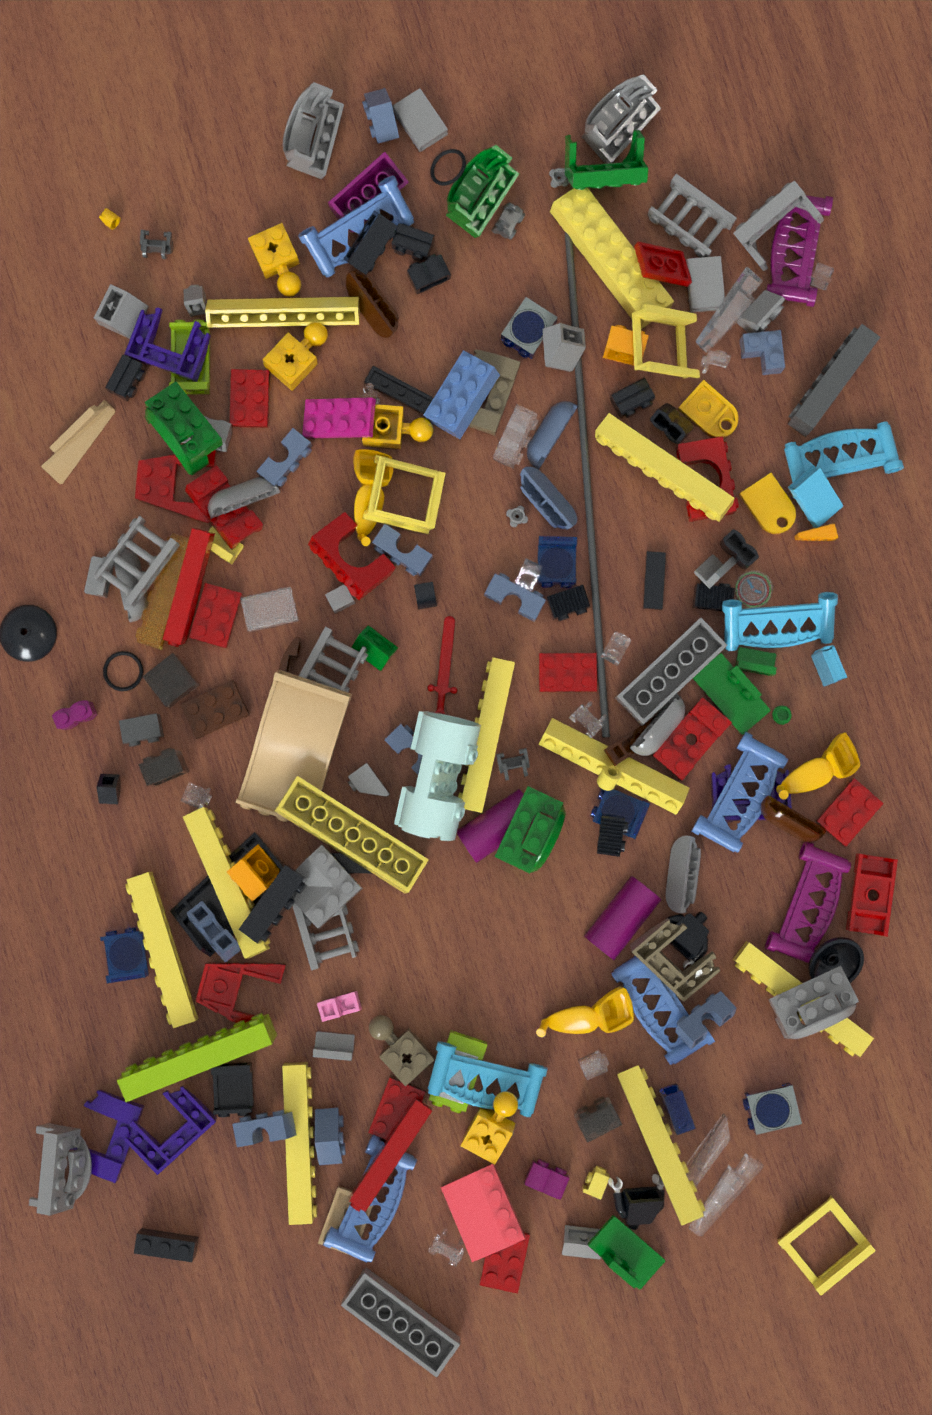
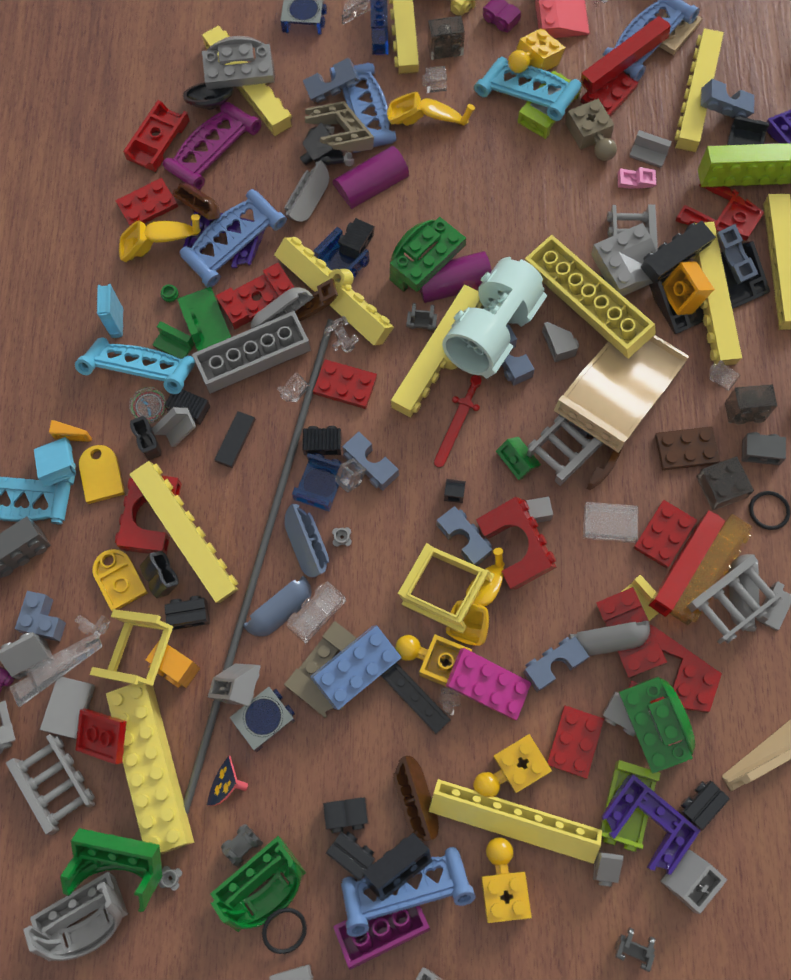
camera: 160 degrees left, 15 degrees down
(328, 1138) = (673, 86): sand blue brick -> none
(541, 263) = (224, 784): none -> dark blue shield

